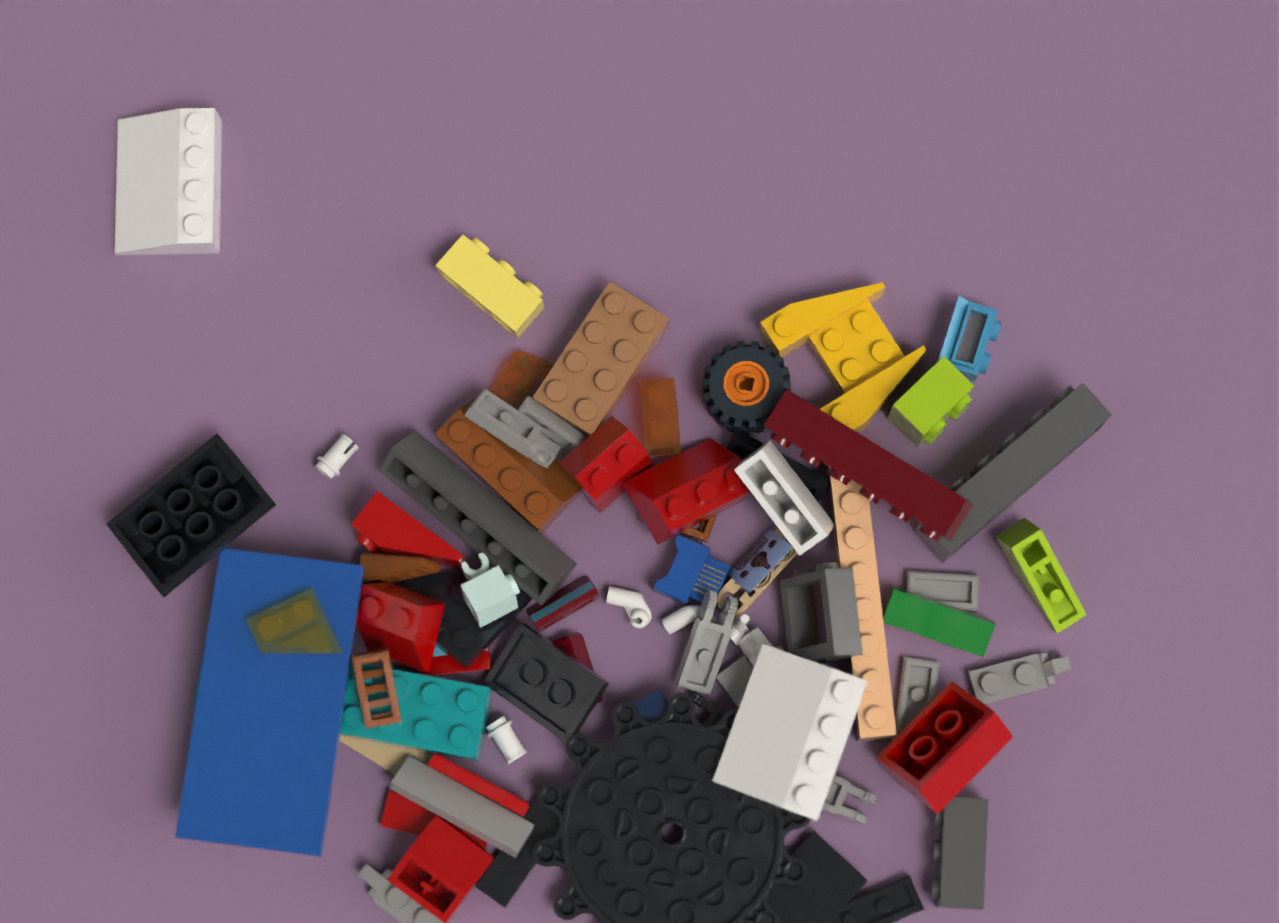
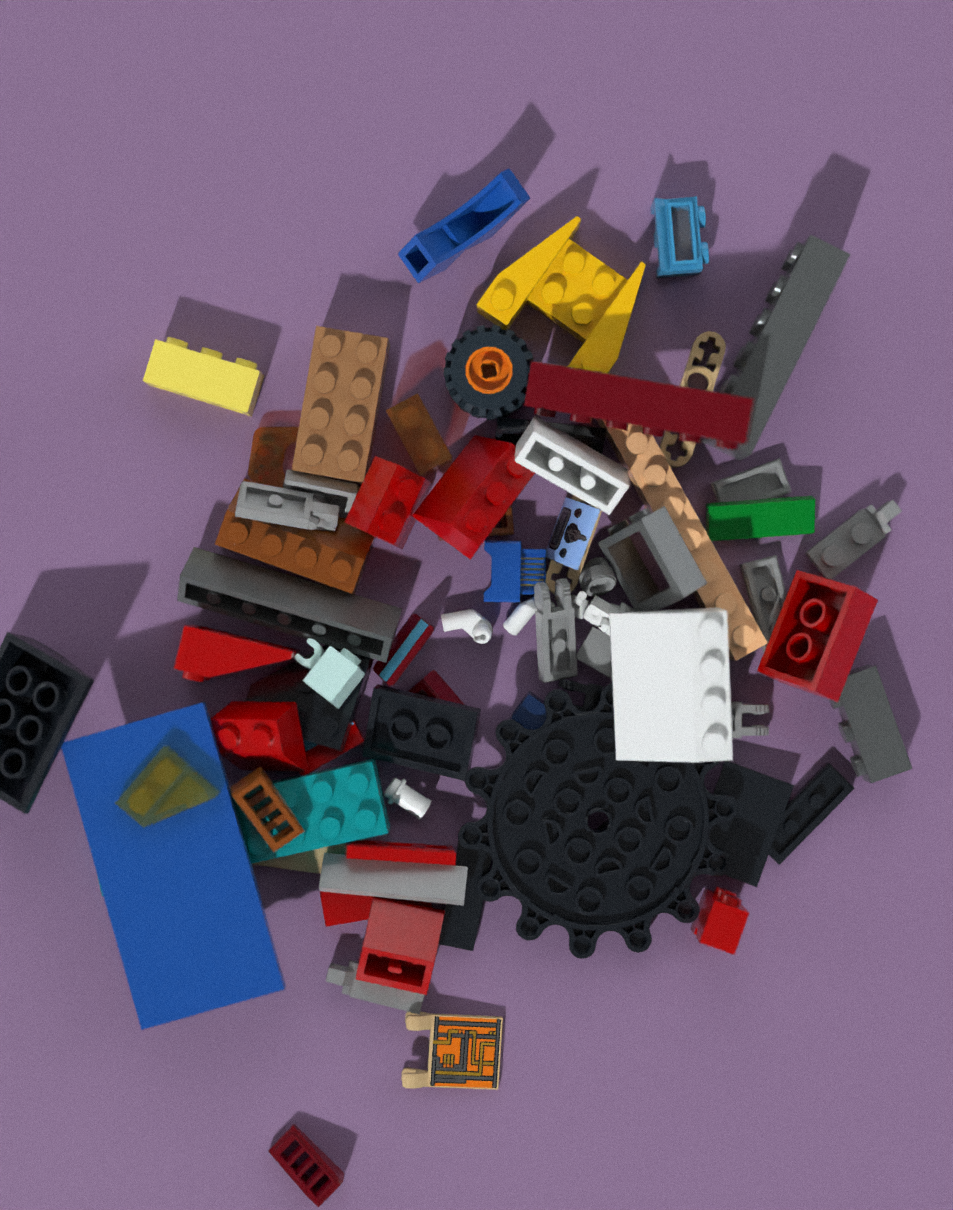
camera: 30 degrees left, 10 degrees up
(336, 457) = (131, 602): white pin -> none
(395, 567) = (222, 691): dark orange slope -> none
(766, 612) = (597, 577): none -> light grey tile
(787, 251) = (466, 227): none -> blue arch
(930, 402) = (670, 313): lime brick -> none
(956, 463) = (714, 360): none -> tan beam
(1041, 574) = (836, 431): lime slope -> none

